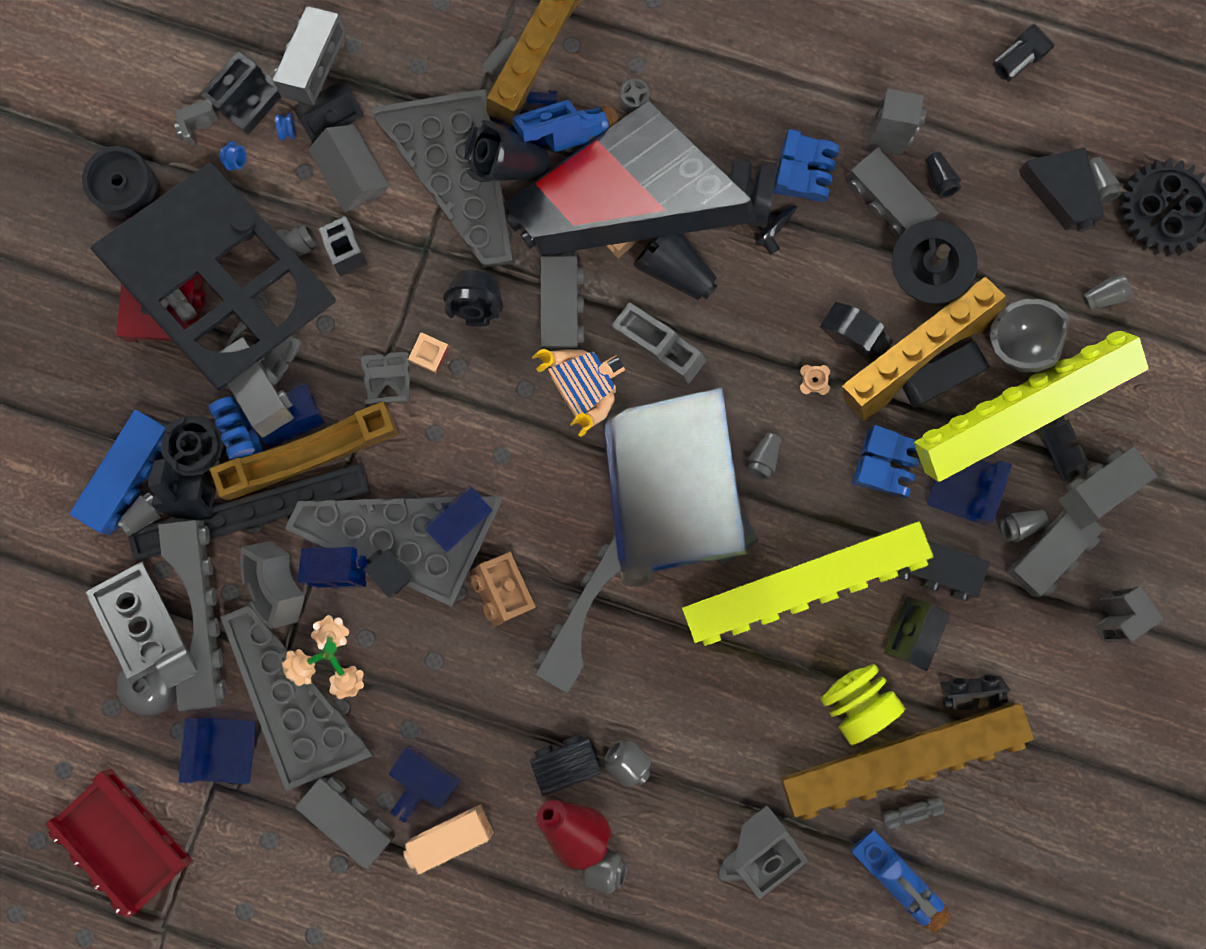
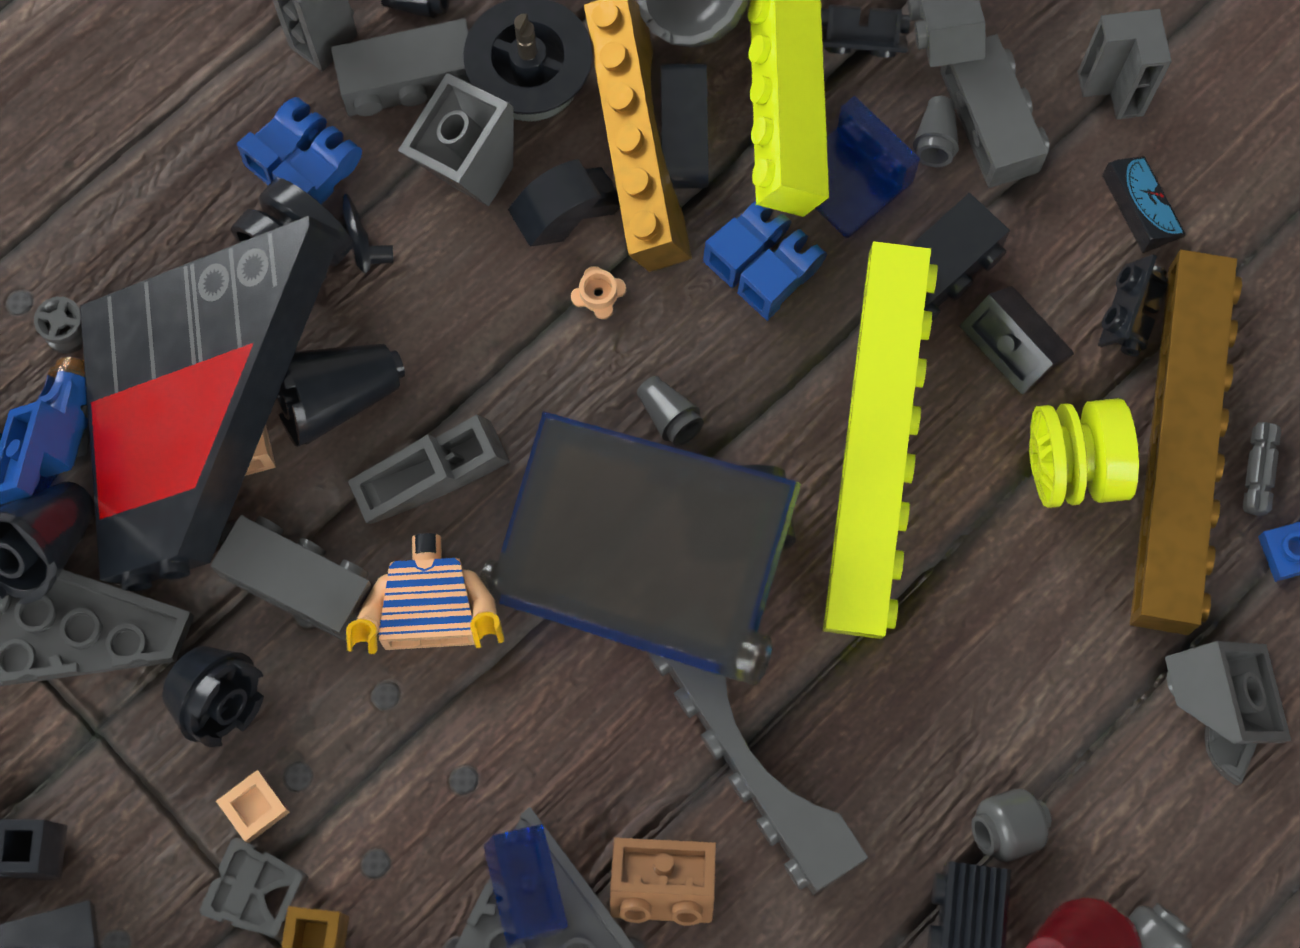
camera: 65 degrees left, 10 degrees down
(862, 253) = (464, 139): none -> dark grey slope
(1045, 668) = (1142, 203): none -> slope

